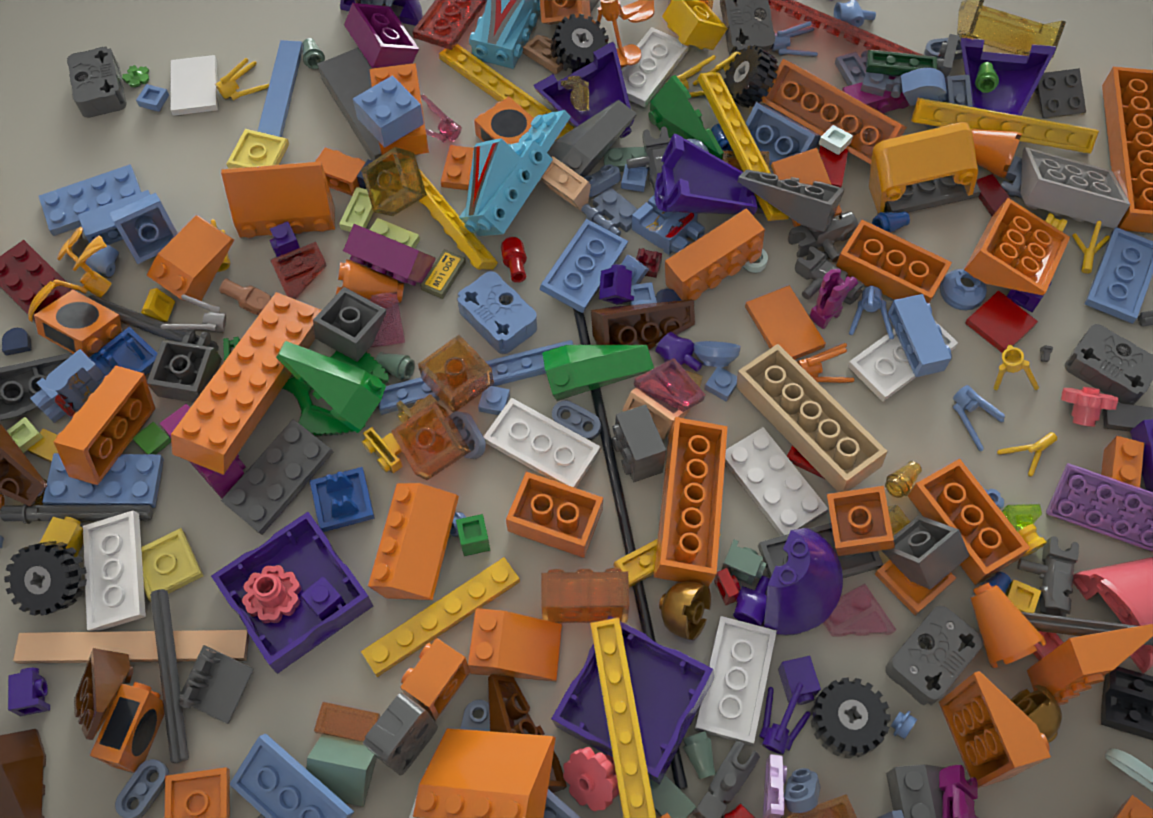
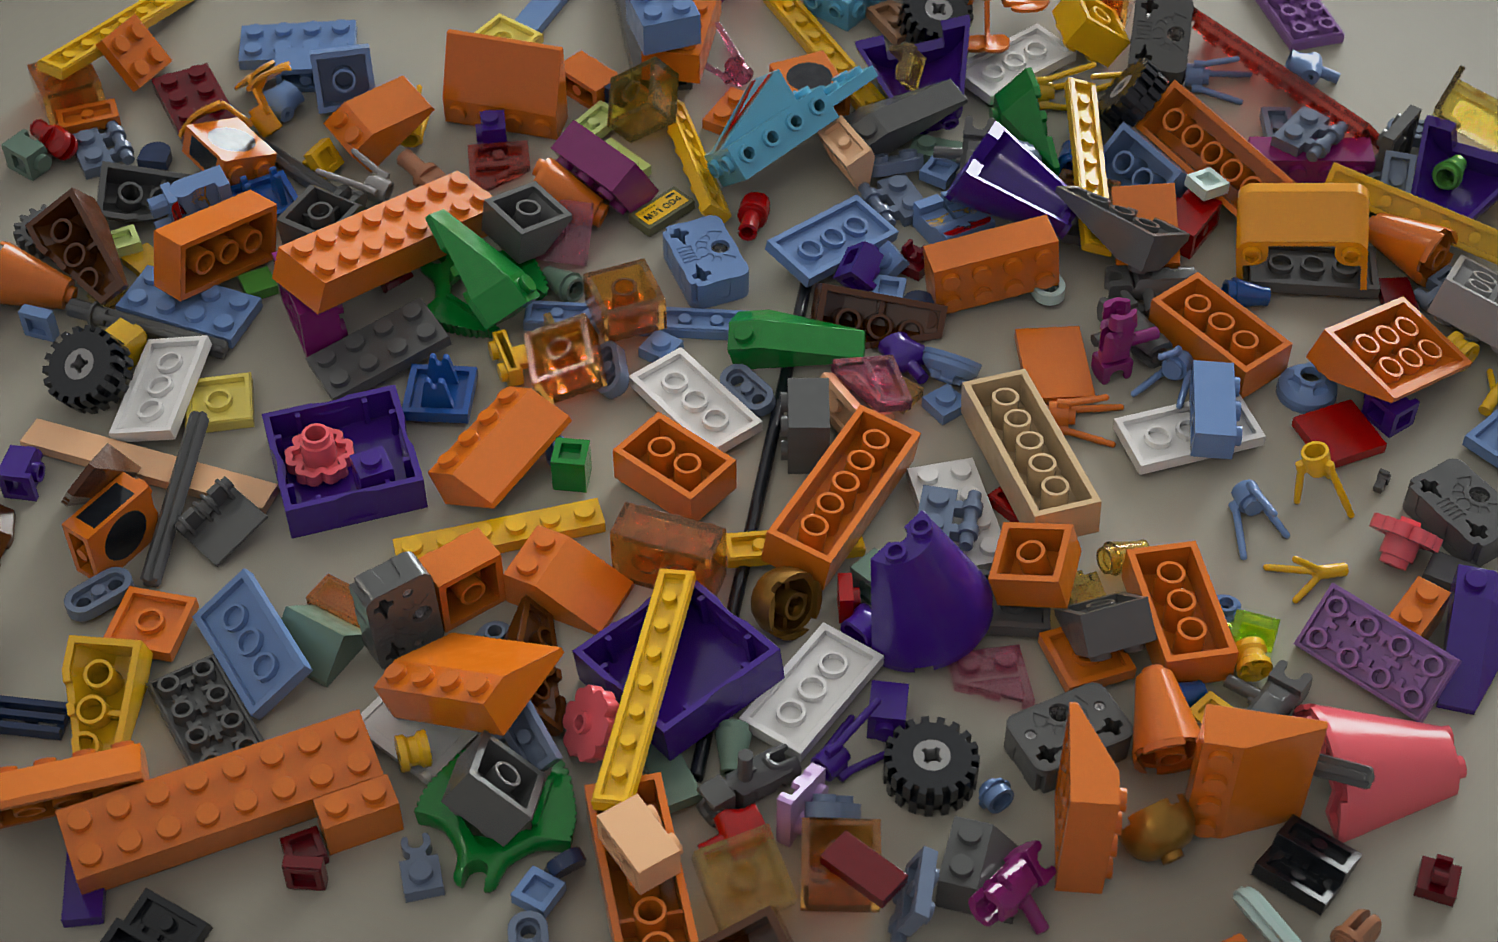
camera: 20 degrees right, 15 degrees down
(764, 494) = (942, 506): none -> sand blue plate
(897, 63) = (1331, 123): dark green tile -> none
(925, 84) = (1351, 149): medium blue brick -> none

